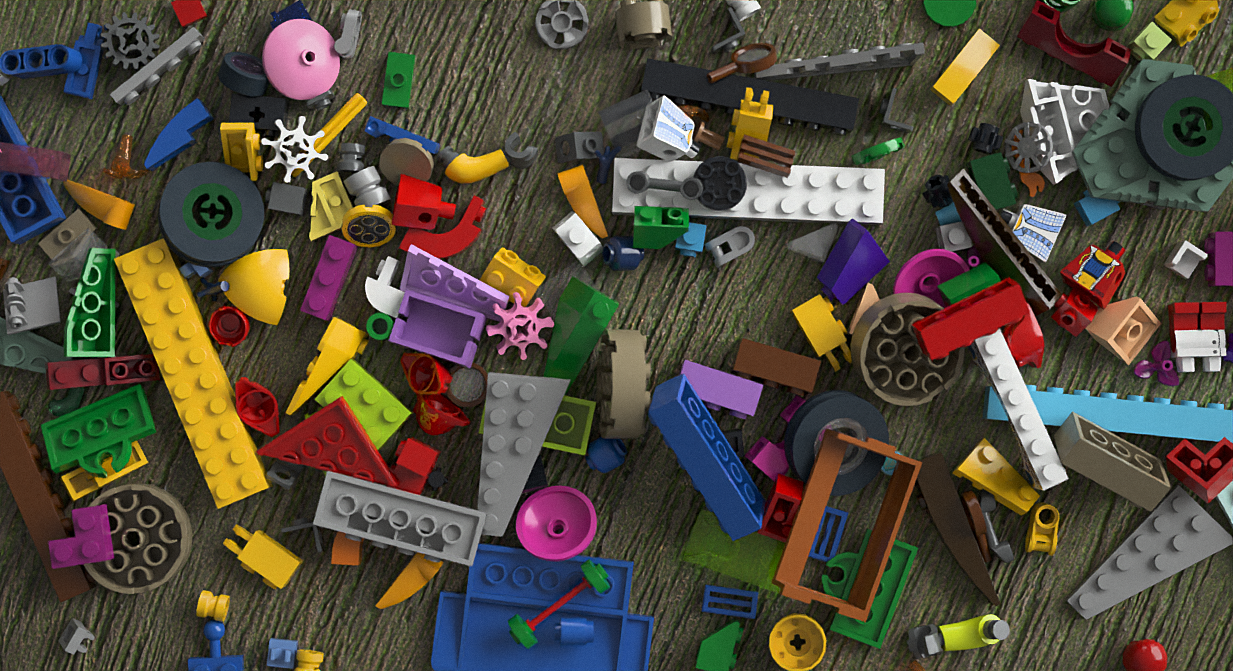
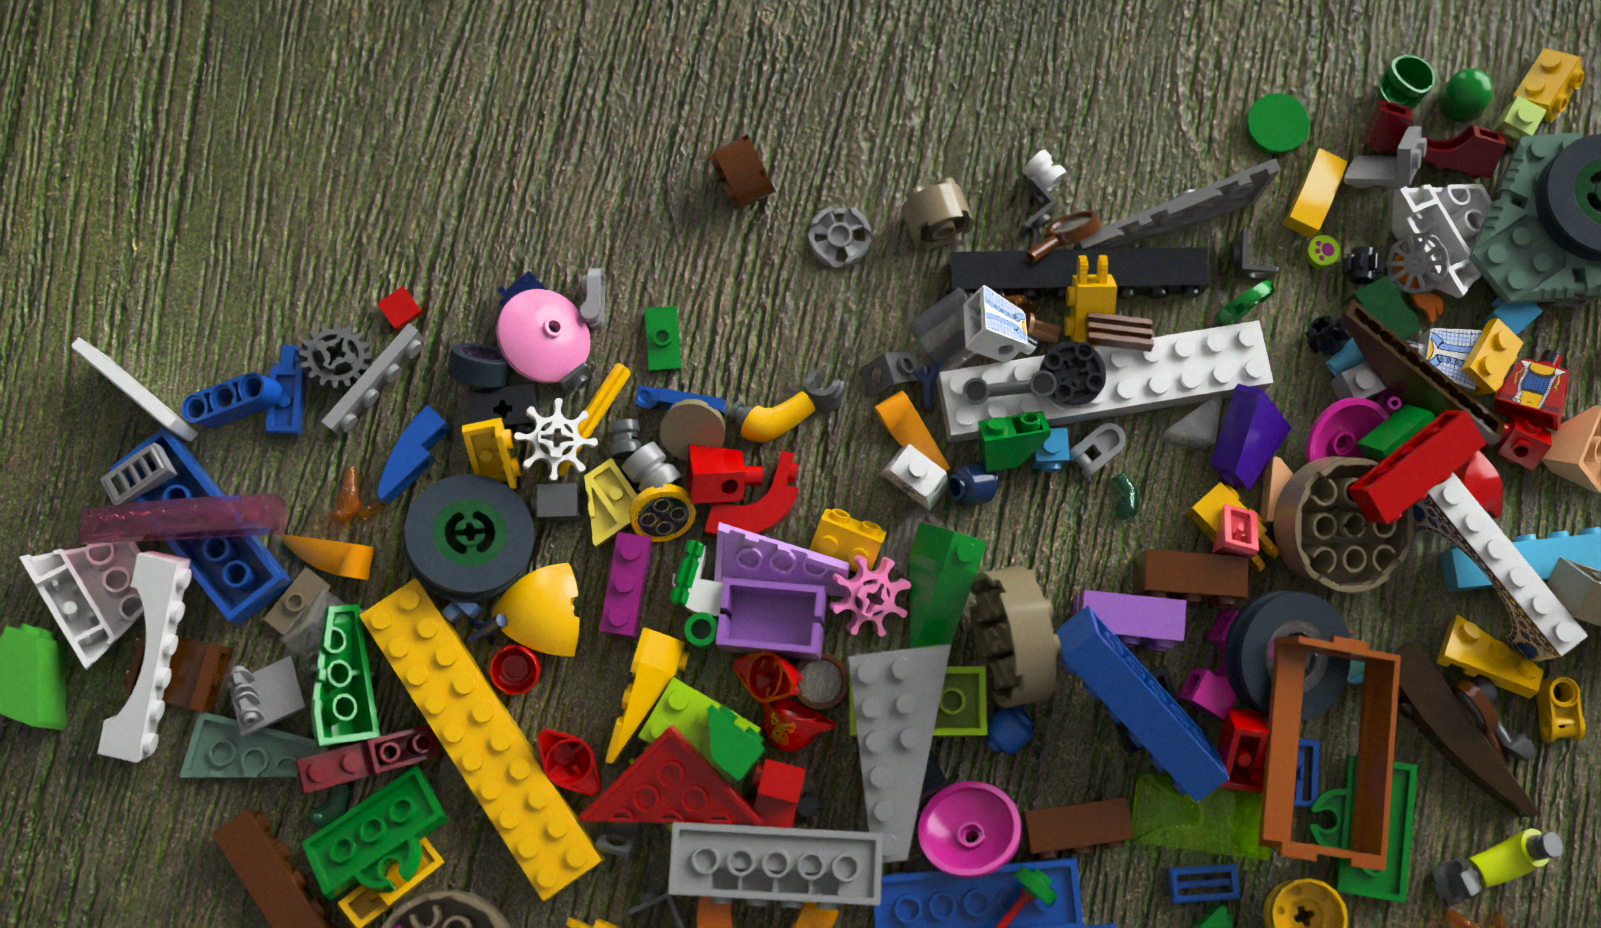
camera: 10 degrees left, 10 degrees down
(377, 278) = (686, 572): none -> green axle
(383, 422) = (730, 745): none -> green slope
(641, 539) = (1077, 827): none -> reddish brown brick
(747, 289) = (1130, 496): none -> clear green arm
(820, 338) = (1236, 533): none -> coral slope
(957, 118) = (1322, 251): none -> lime tile
(1024, 62) = (1391, 171): none -> light grey bracket
(1066, 238) = (1491, 357): none -> yellow bracket

